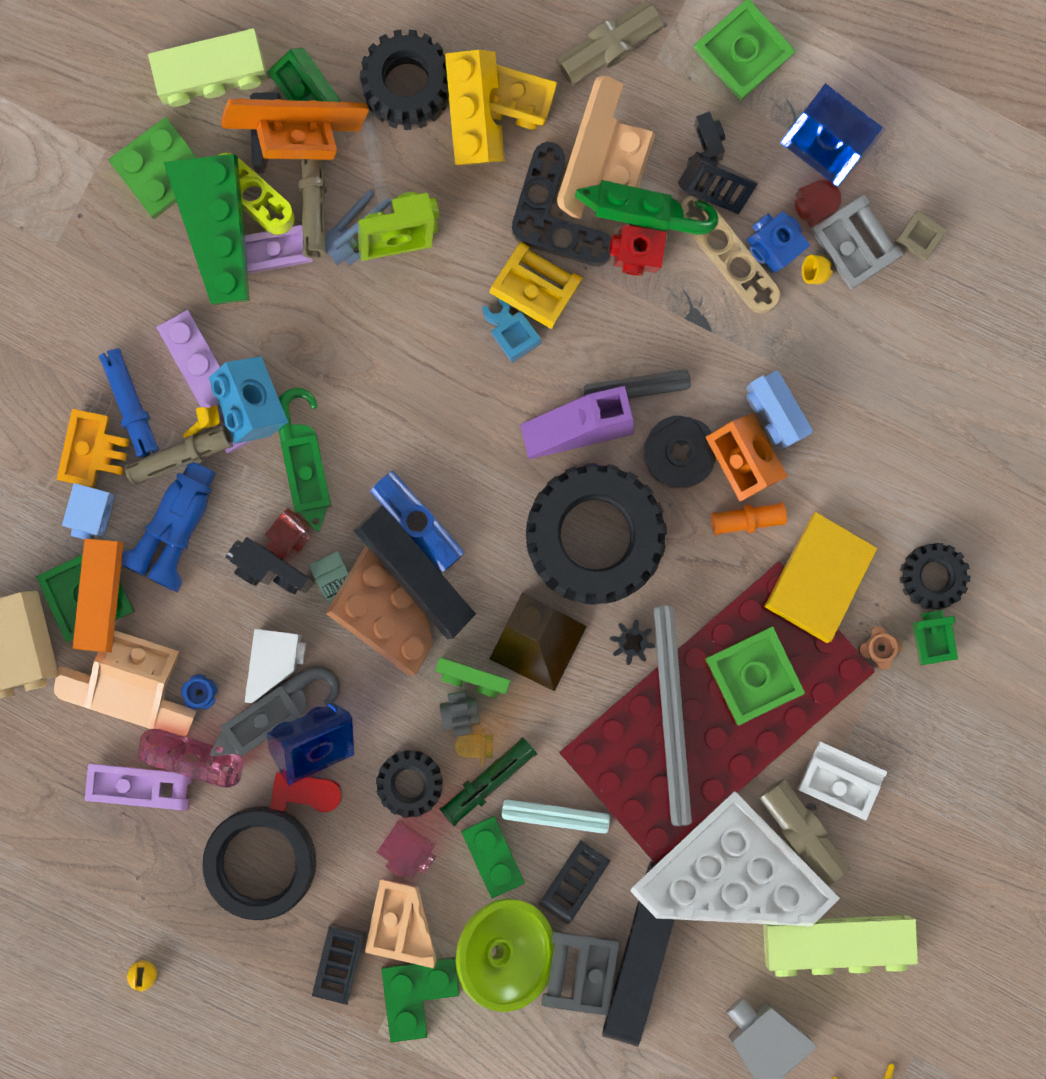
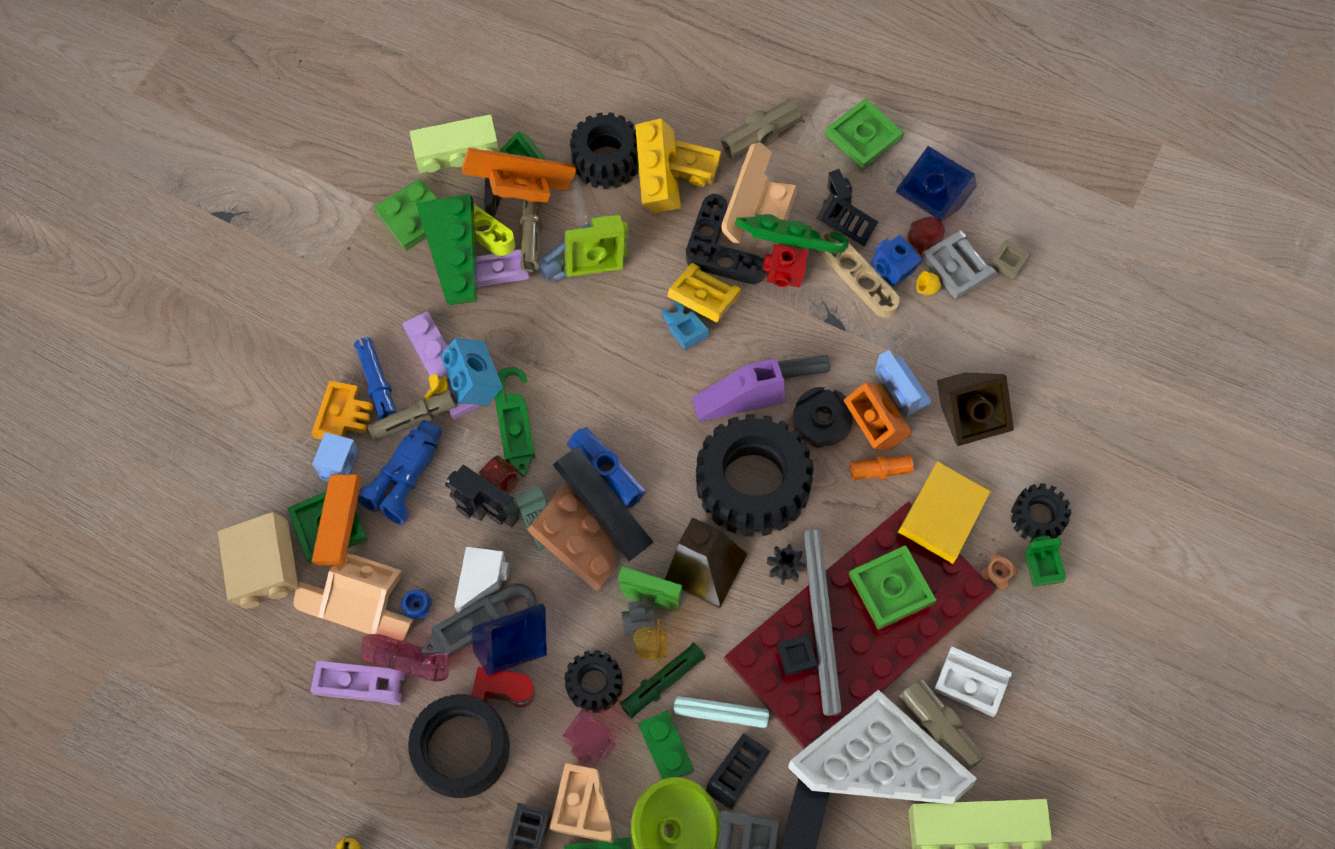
camera: 10 degrees right, 20 degrees down
(642, 758) = (796, 655): none -> black plate
(865, 438) = (976, 405): none -> dark brown slope

